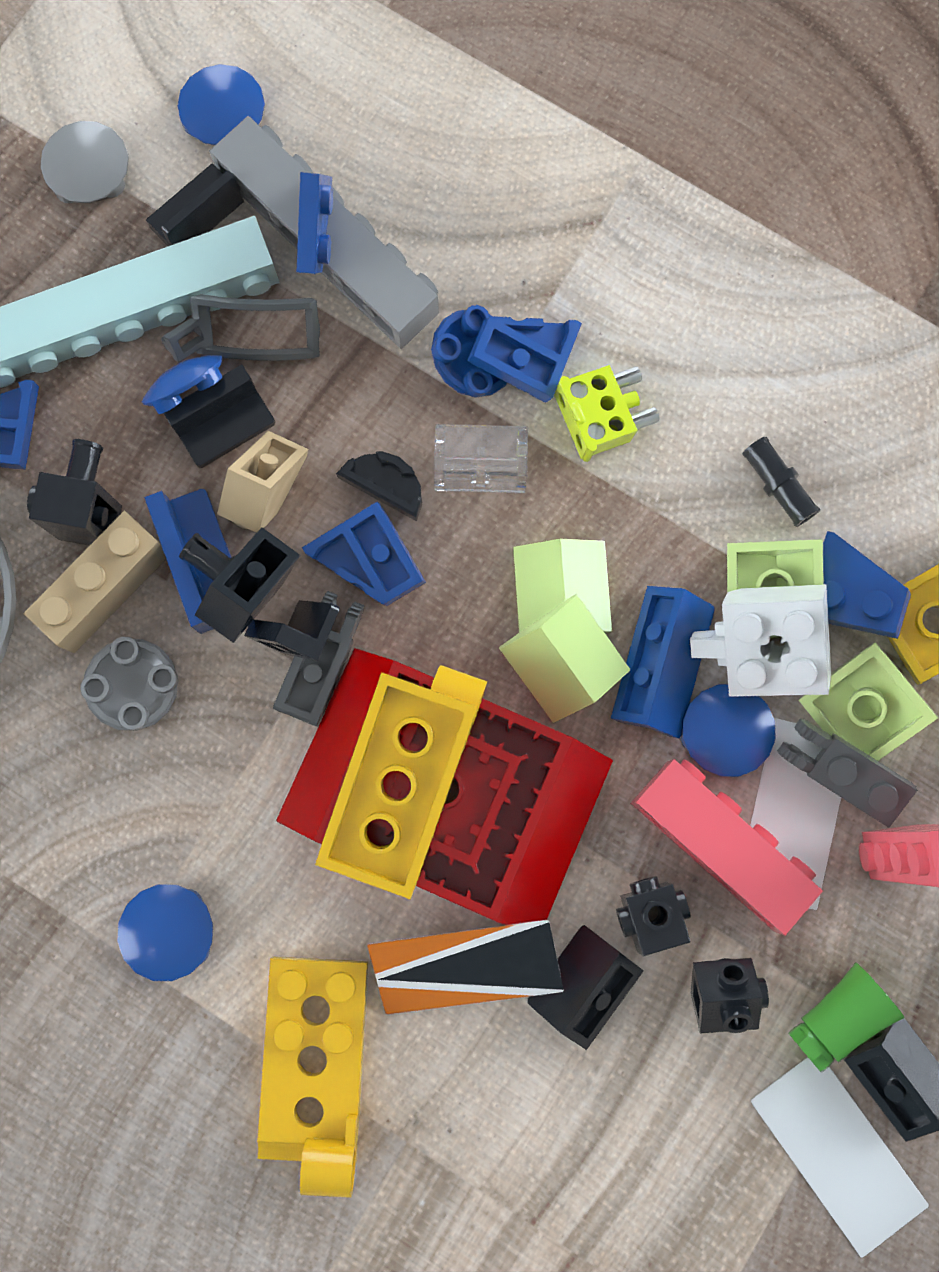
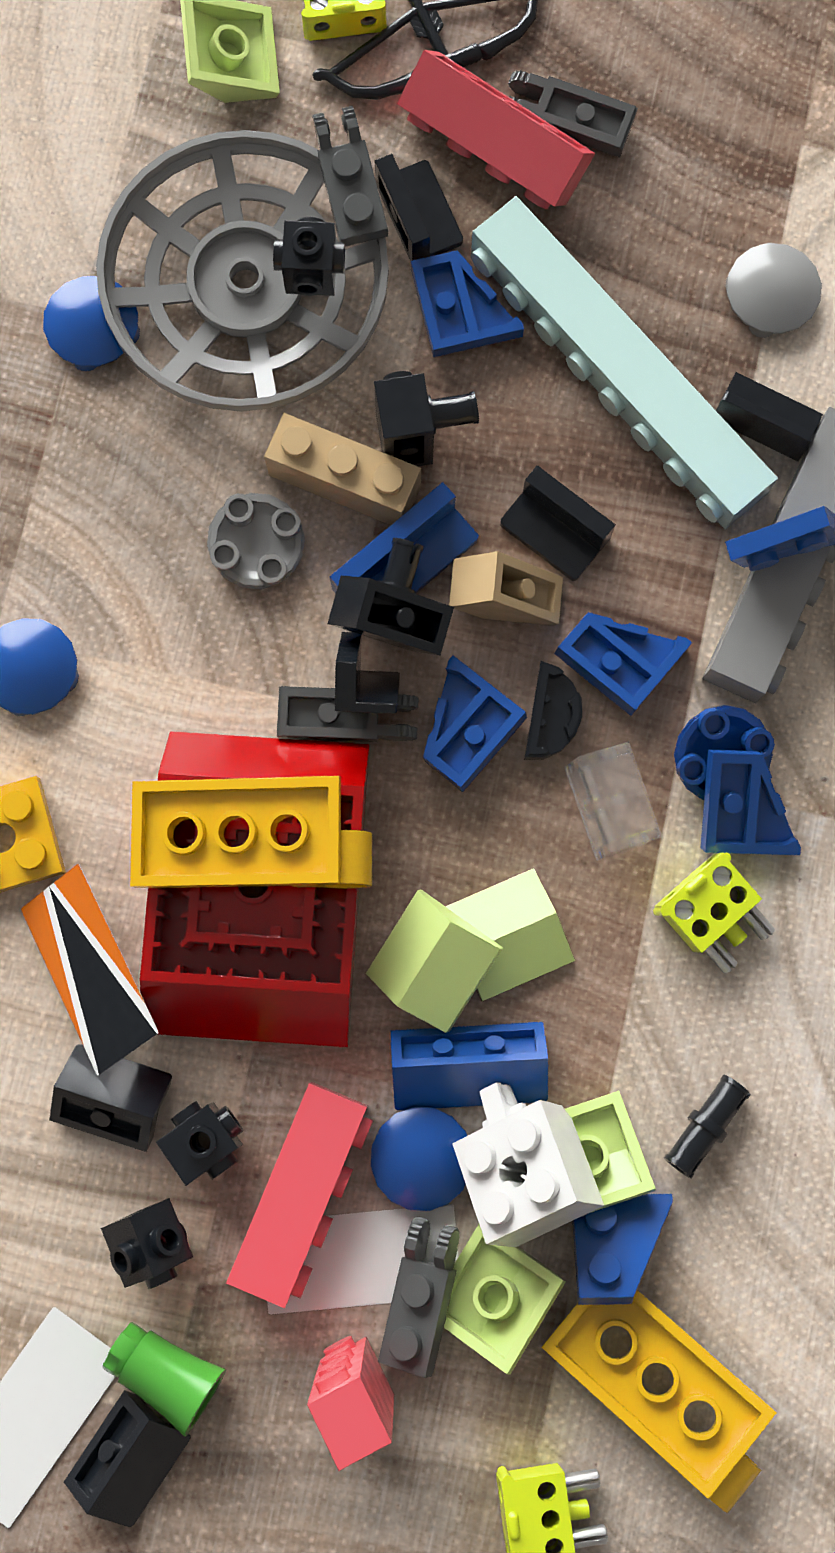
camera: 70 degrees right, 0 degrees up
(192, 372) = (577, 470): blue dish -> none
(202, 326) = (628, 479): dark grey sword -> none
(359, 407) = (620, 658): none -> blue wing

